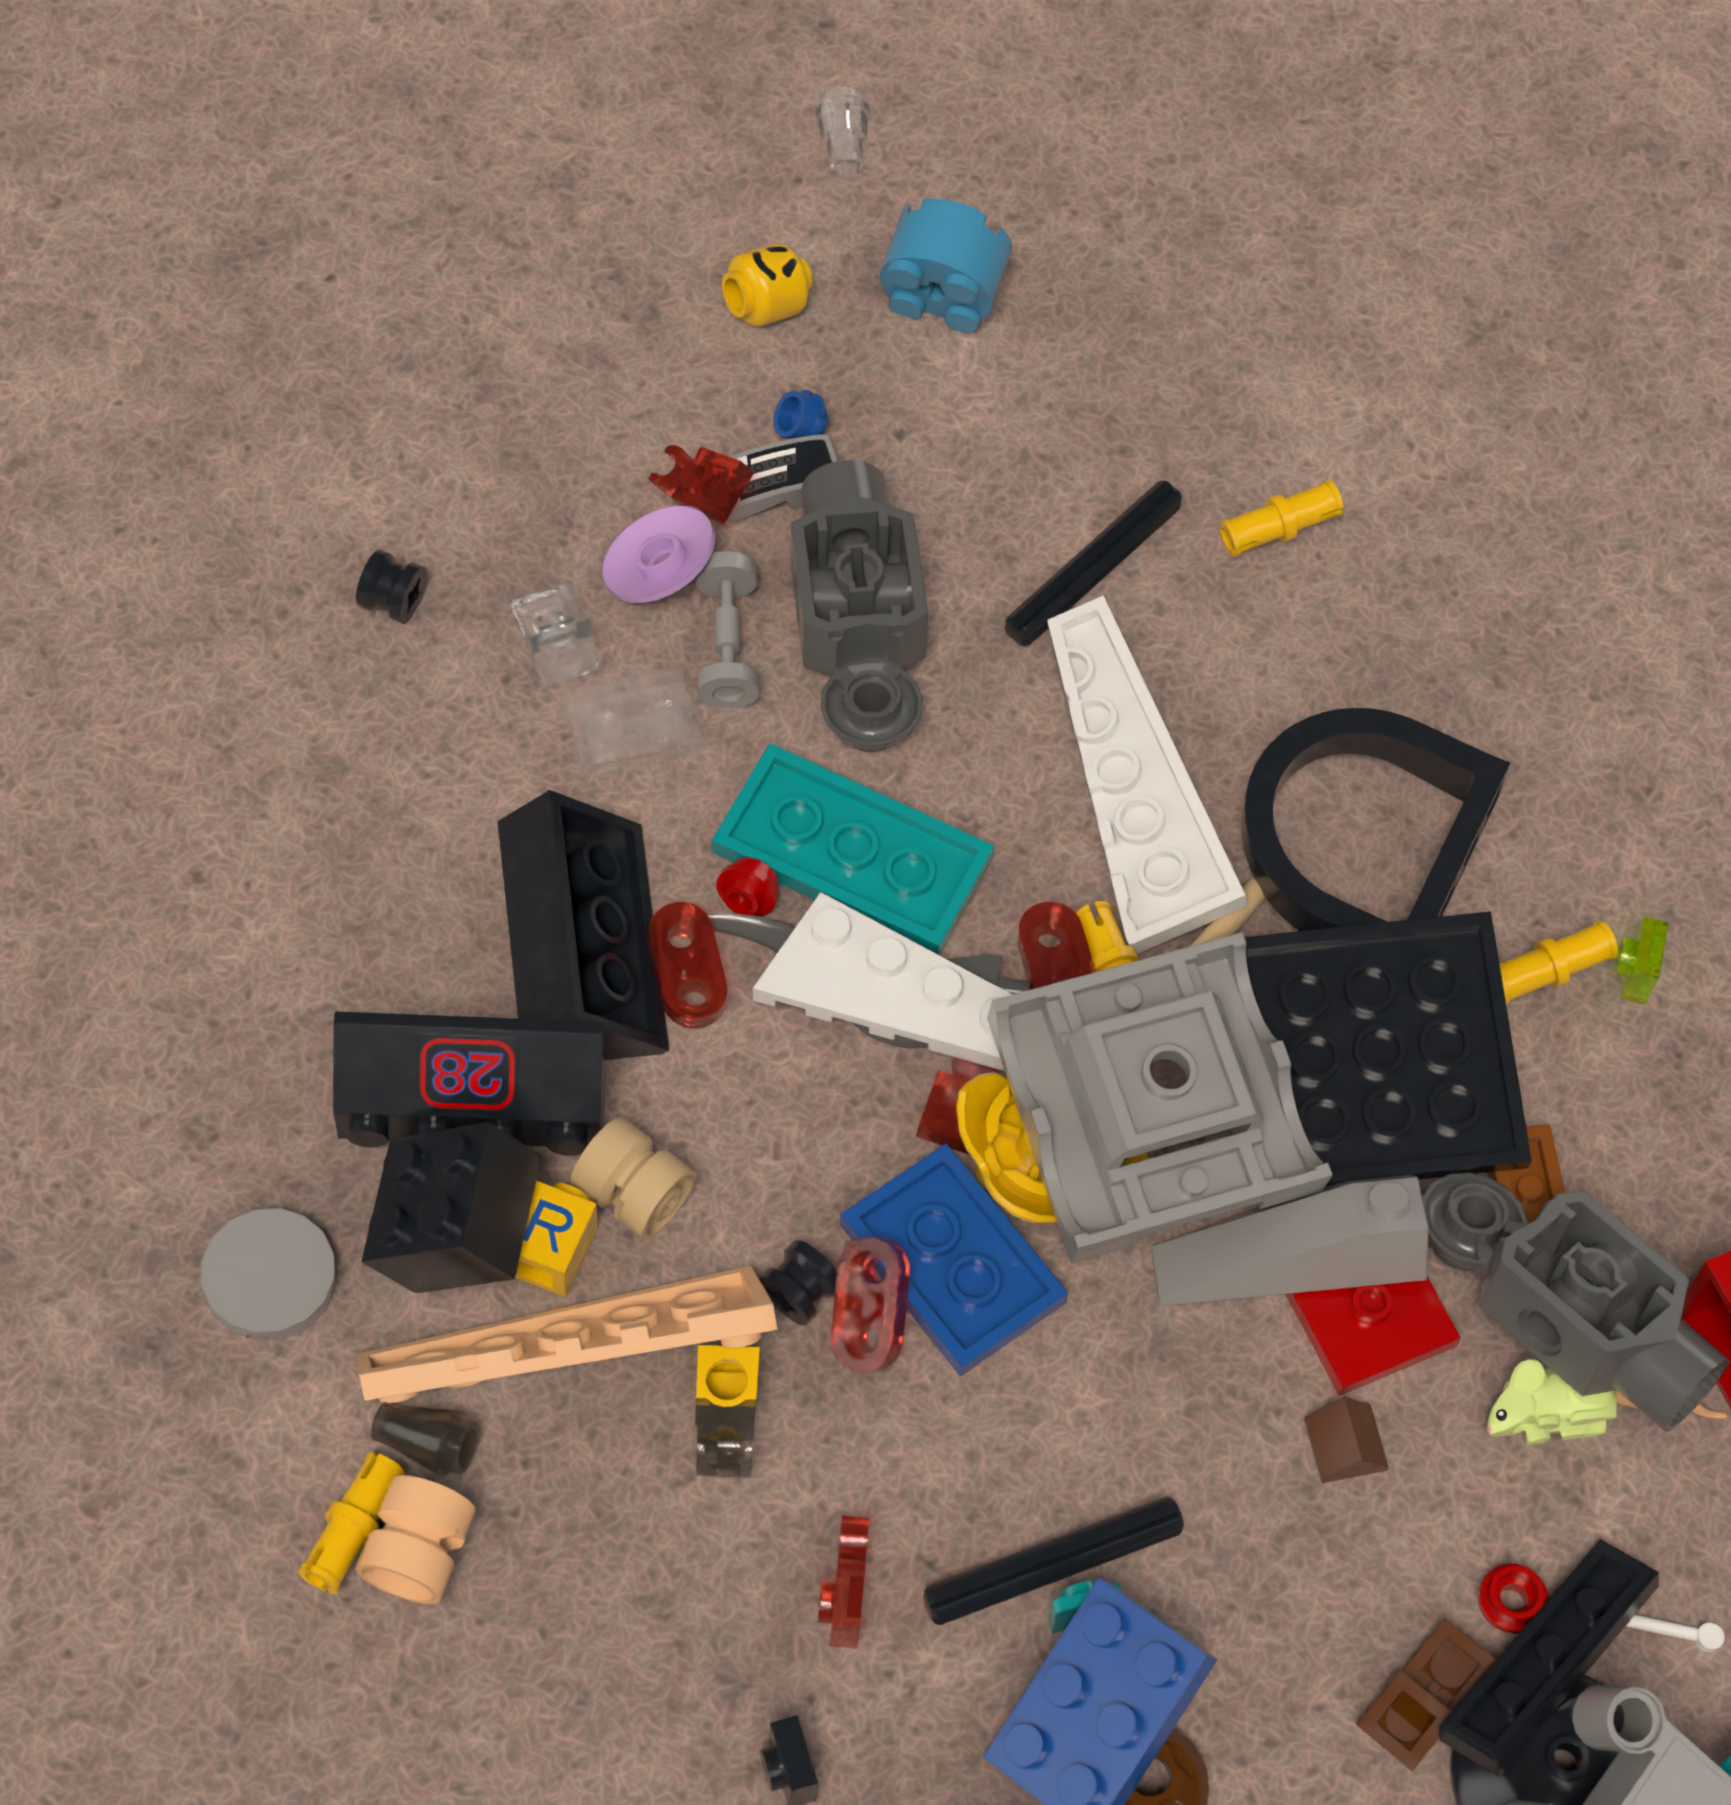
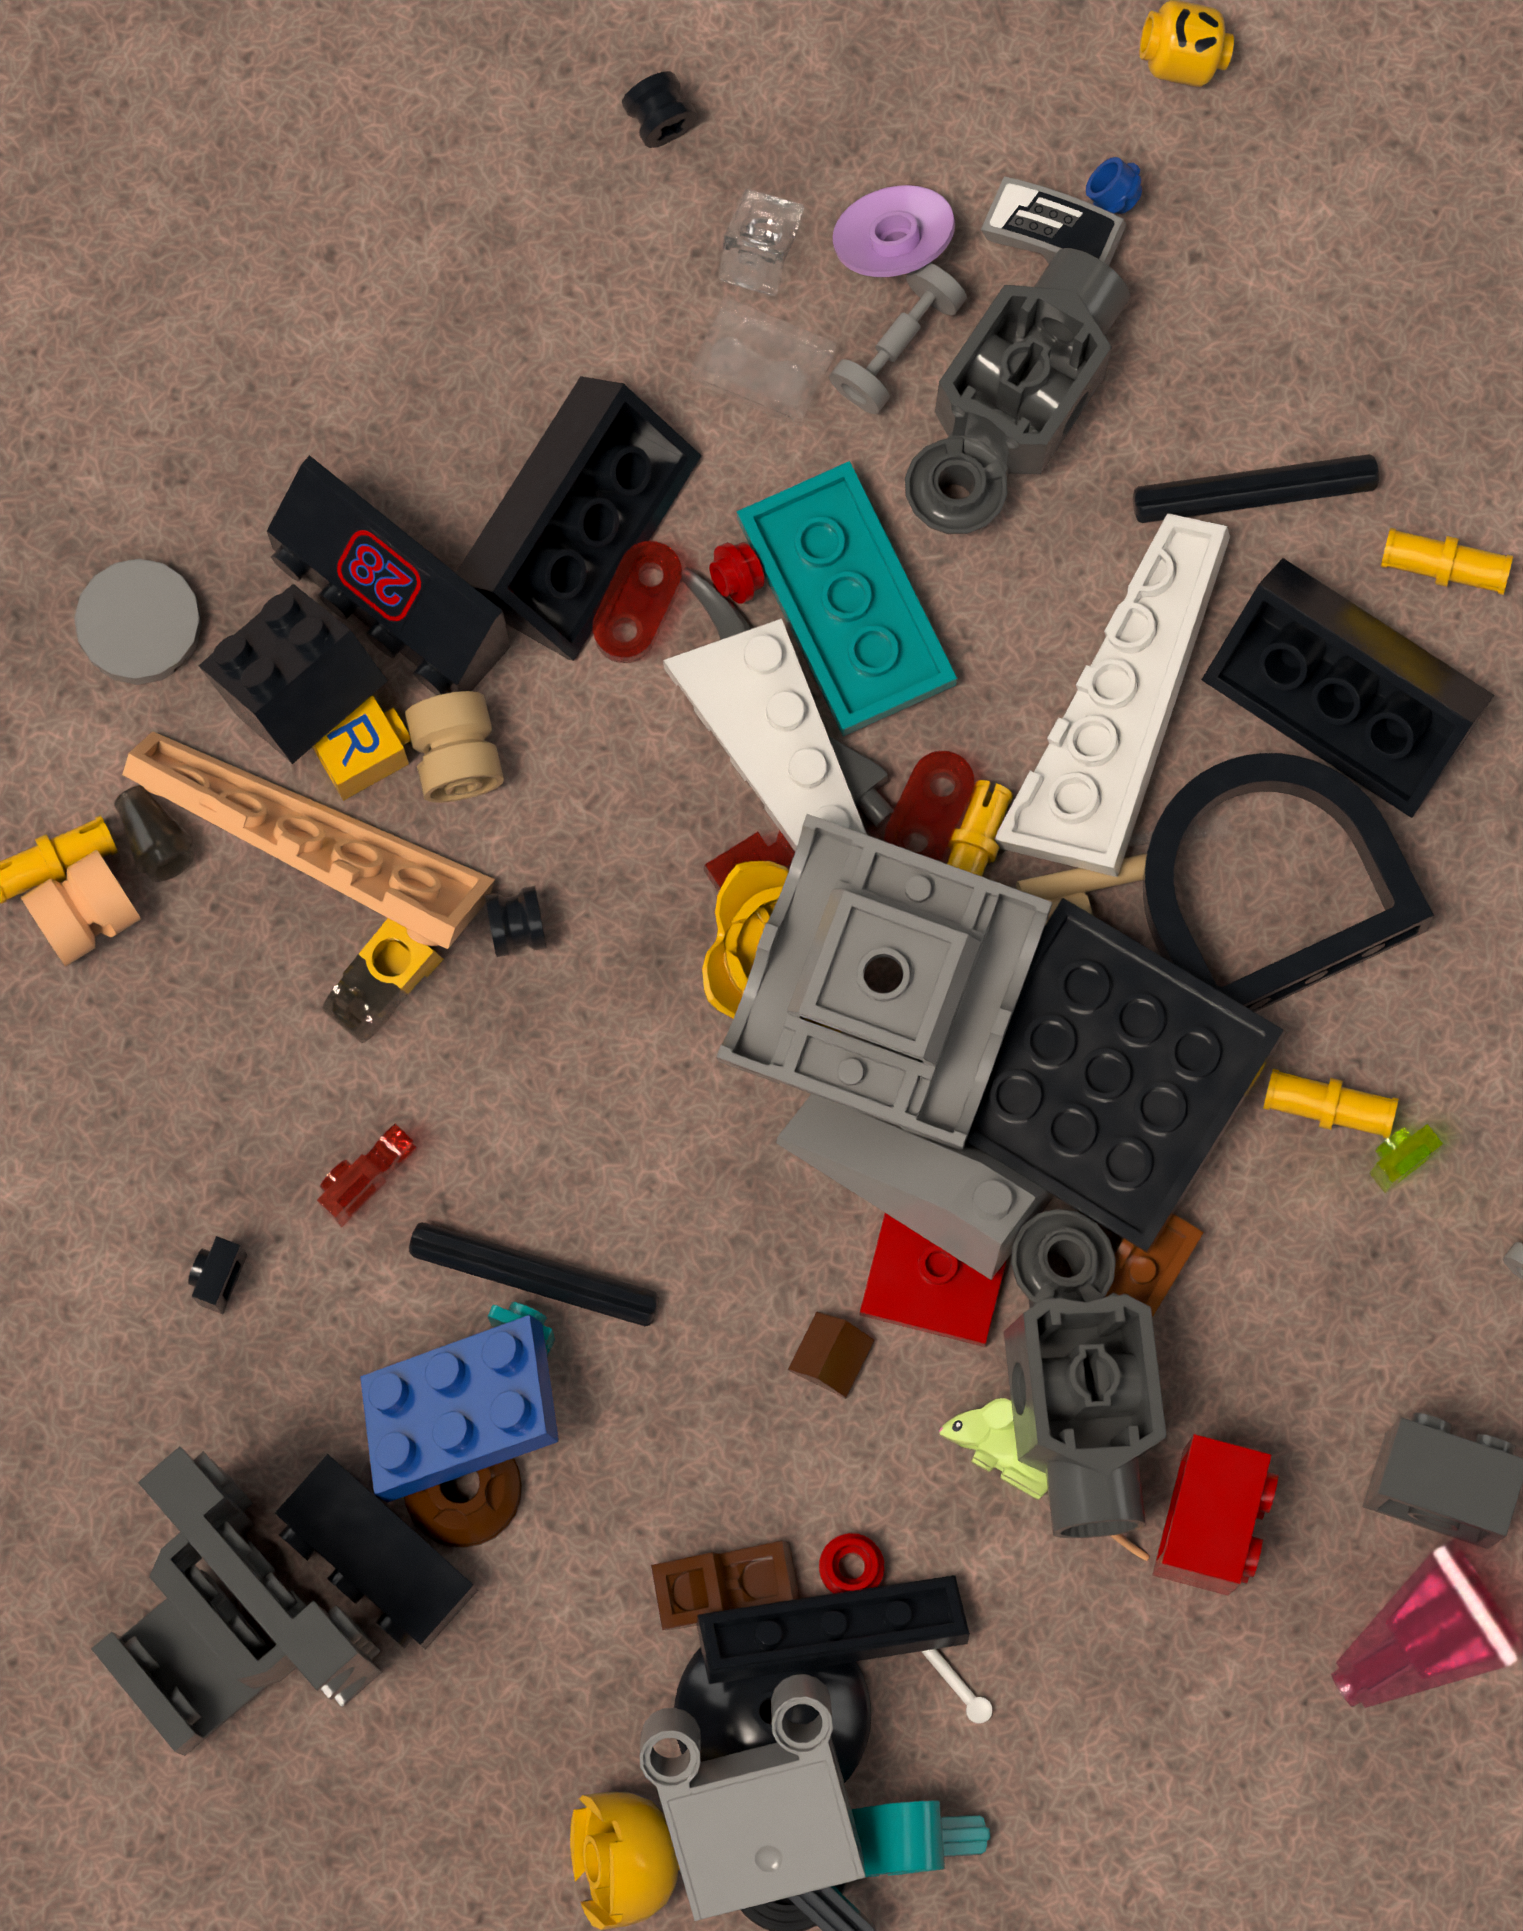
camera: 45 degrees right, 15 degrees up
(704, 482) = (981, 193): clear red plate -> none
(866, 1303) = (551, 972): clear red plate -> none
(945, 264) = (1345, 130): dark azure brick -> none
(969, 1266) = (646, 990): blue plate -> none
(1290, 652) = (1346, 687): none -> black slope

